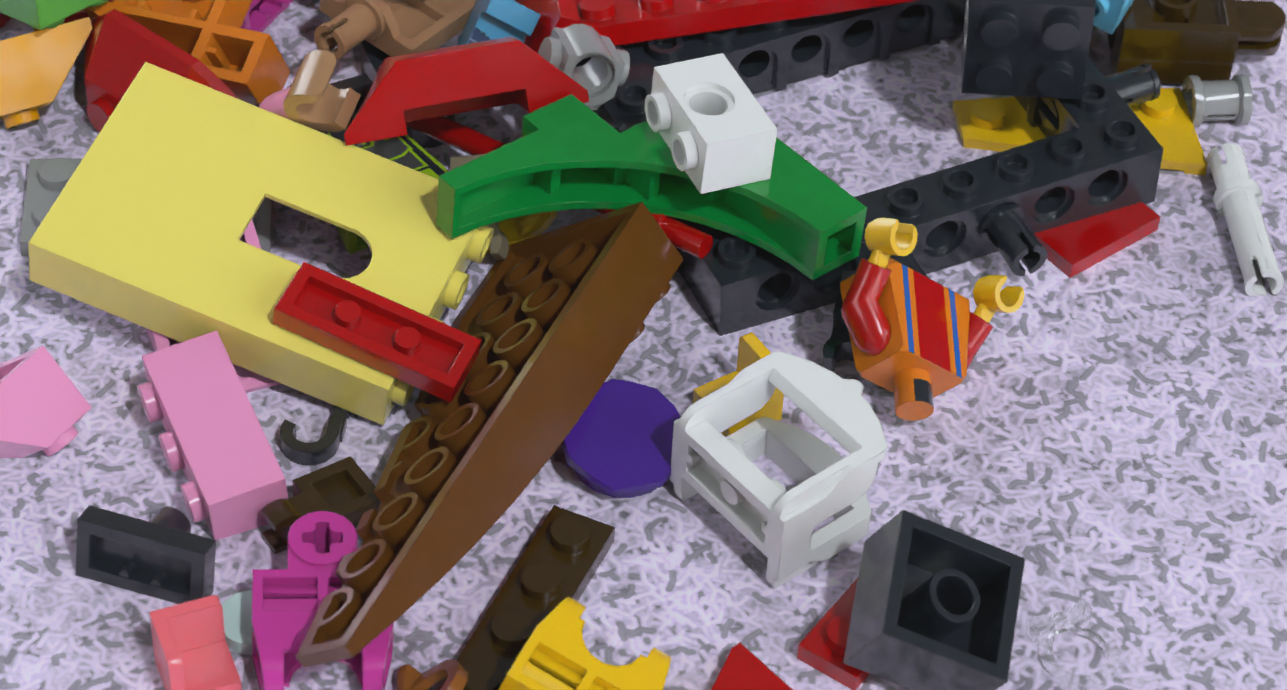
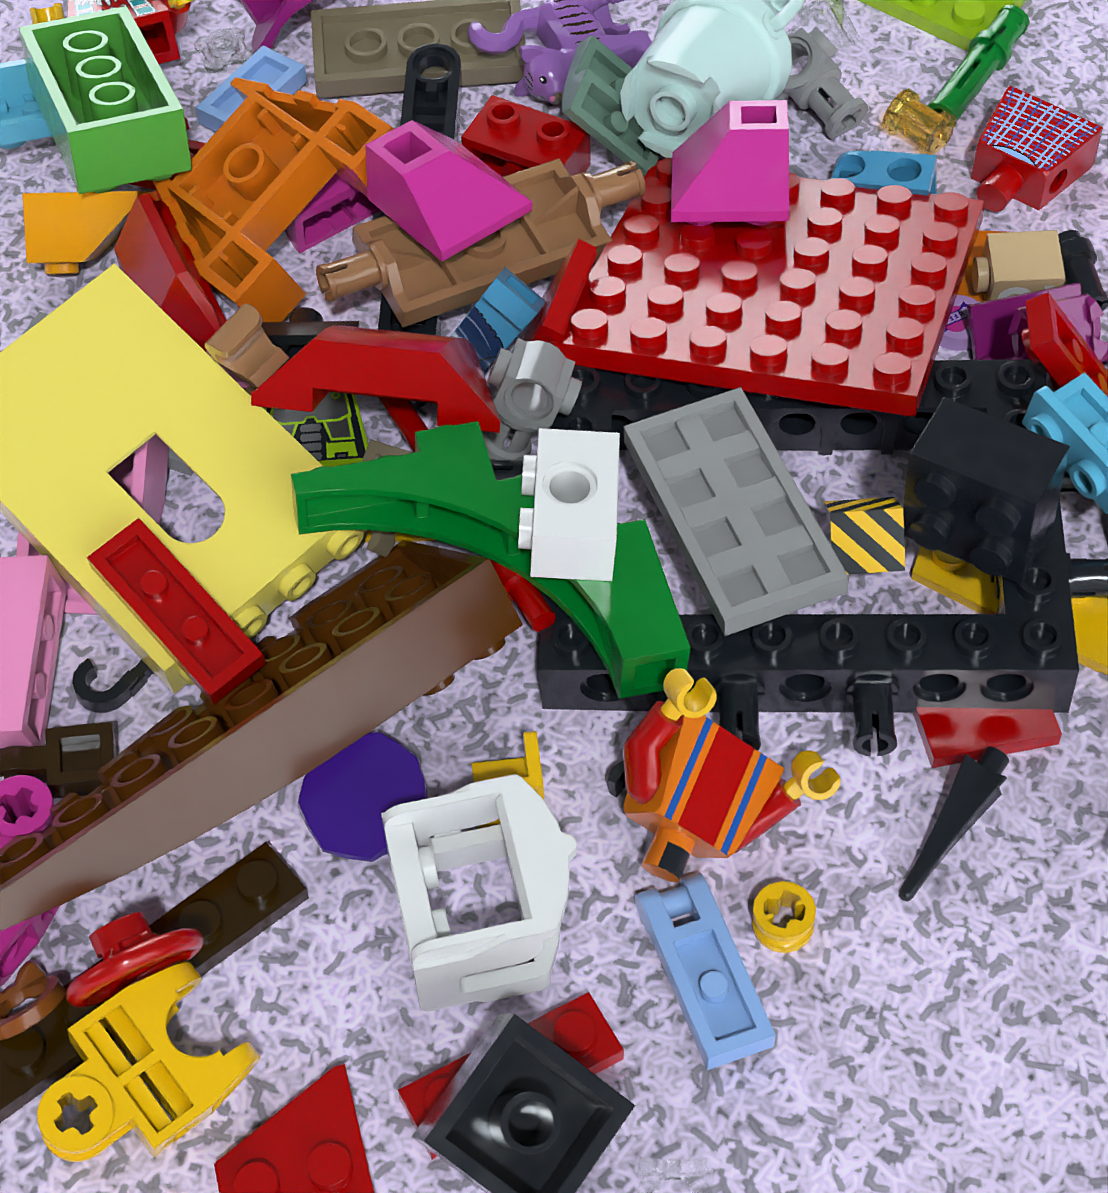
camera: 30 degrees right, 10 degrees up
(525, 600) = (128, 956): none -> red piece
(835, 112) = (735, 511): none -> light grey plate
(944, 98) = (868, 534): none -> sticker
(991, 473) = (706, 972): none -> light blue plate
(1031, 400) = (770, 901): none -> yellow bush
(1115, 288) = (969, 798): none -> black piece

